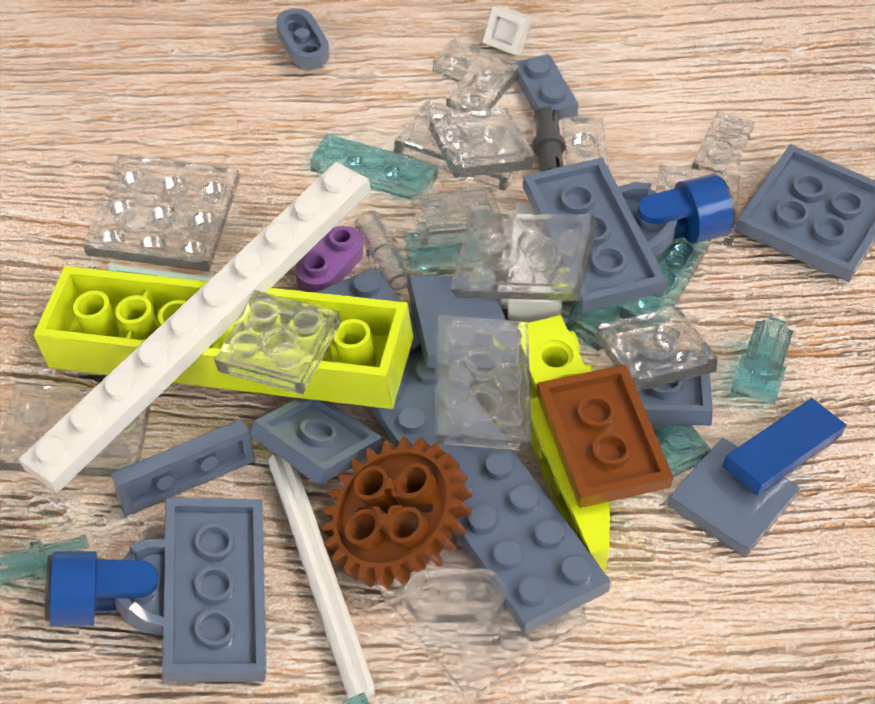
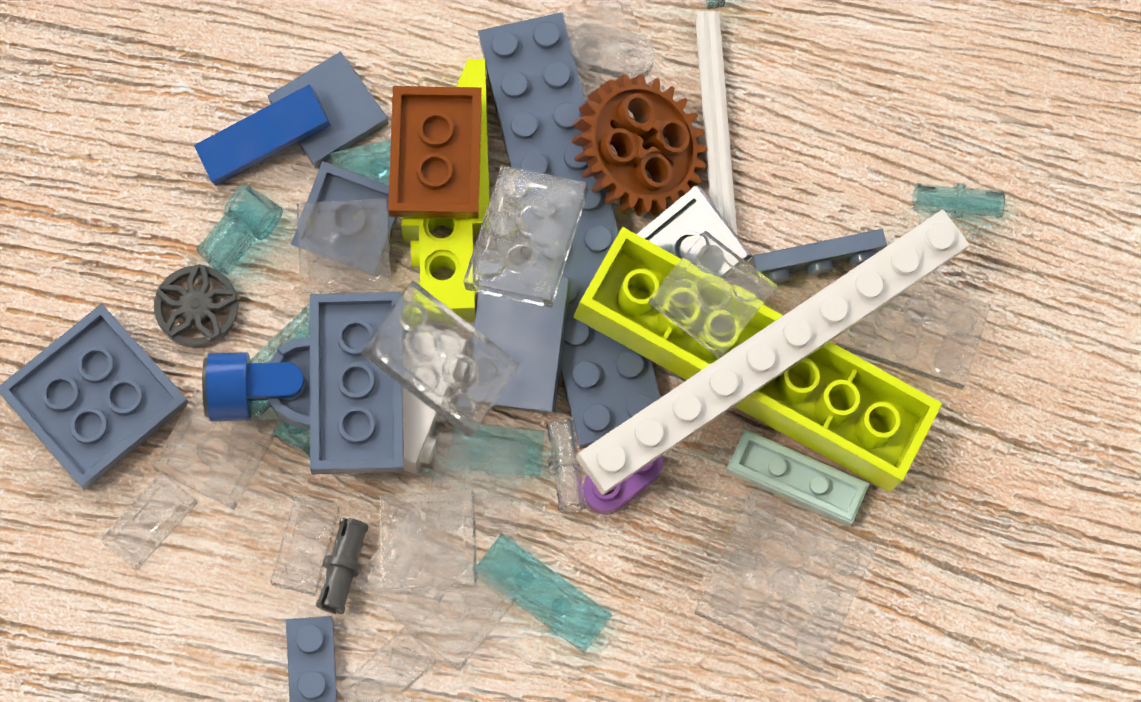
camera: 165 degrees left, 20 degrees up
(191, 587) = (832, 132): sand blue plate -> none
(767, 299) = (196, 306): none -> dark grey wheel

